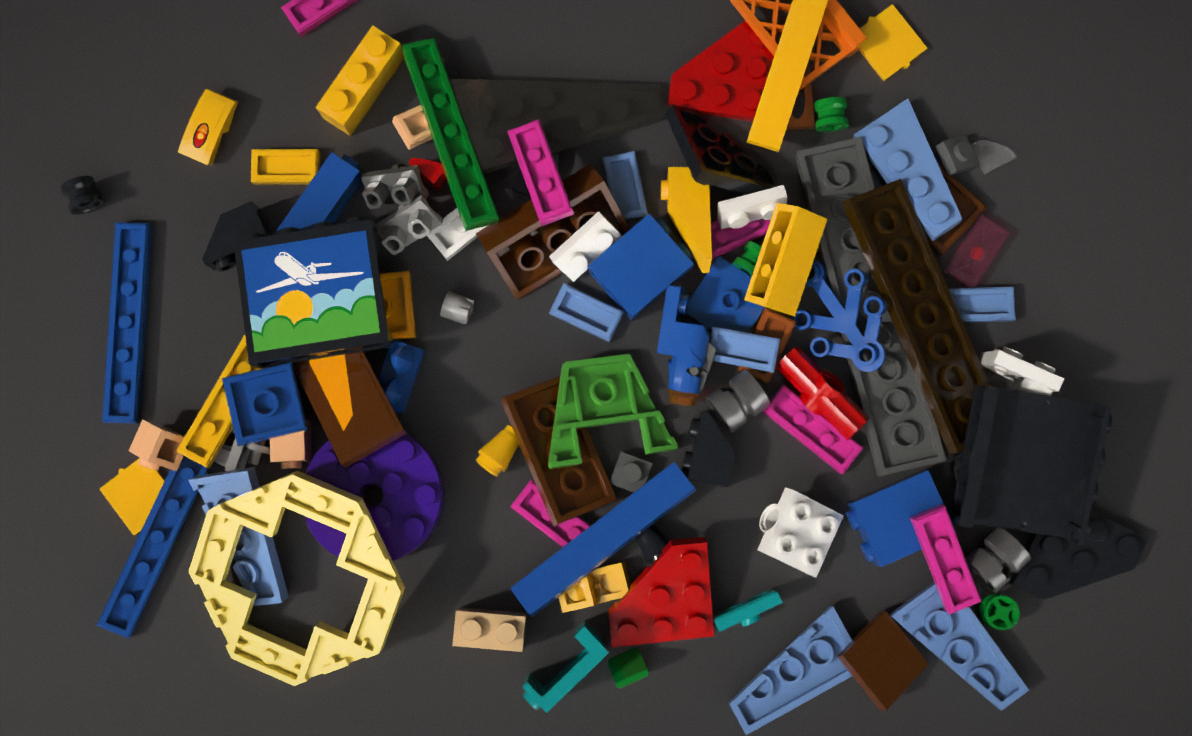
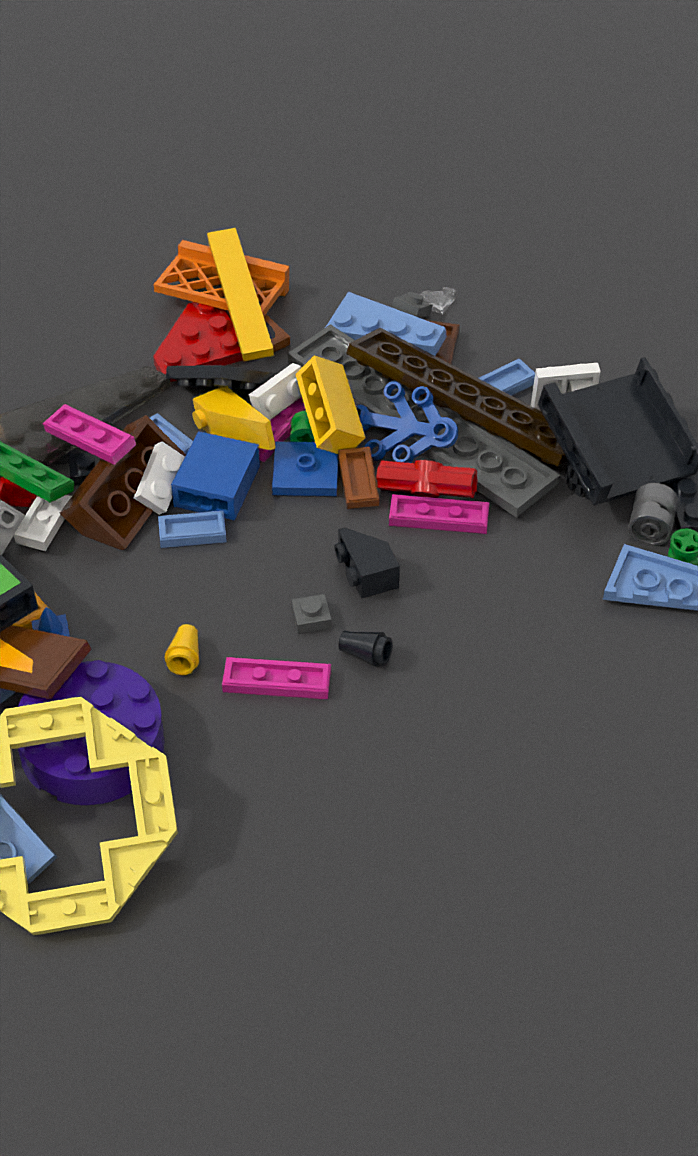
camera: 30 degrees left, 35 degrees down
(457, 307) = (76, 573): light grey hose -> none
(490, 629) = (269, 775): tan brick -> none
(564, 490) = (236, 619): reddish brown plate -> none
(576, 670) = (366, 735): teal panel -> none
(598, 586) = (341, 706): yellow slope -> none
(602, 539) = (320, 660): blue tile -> none
(603, 394) = (251, 562): bright green wing -> none
(628, 667) = (417, 746): green slope -> none
(667, 598) = (409, 672): red plate -> none
(689, 349) = (293, 502): blue plate -> none
(738, 400) = (365, 511): flat silver wheel -> none
(745, 349) = (341, 482): medium blue tile -> none
(747, 611) = (483, 649): teal plate -> none
(795, 674) = (564, 670): medium blue wing -> none
(798, 531) = (482, 574): white plate -> none
(831, 114) = (297, 324): green wheel -> none
(883, 660) = (623, 622): reddish brown tile -> none
(886, 514) = (556, 528): blue brick -> none
(890, 43) = (311, 274): yellow piece -> none
(945, 559) = (612, 524): dark pink tile -> none
(976, 252) = (474, 352): clear pink tile -> none

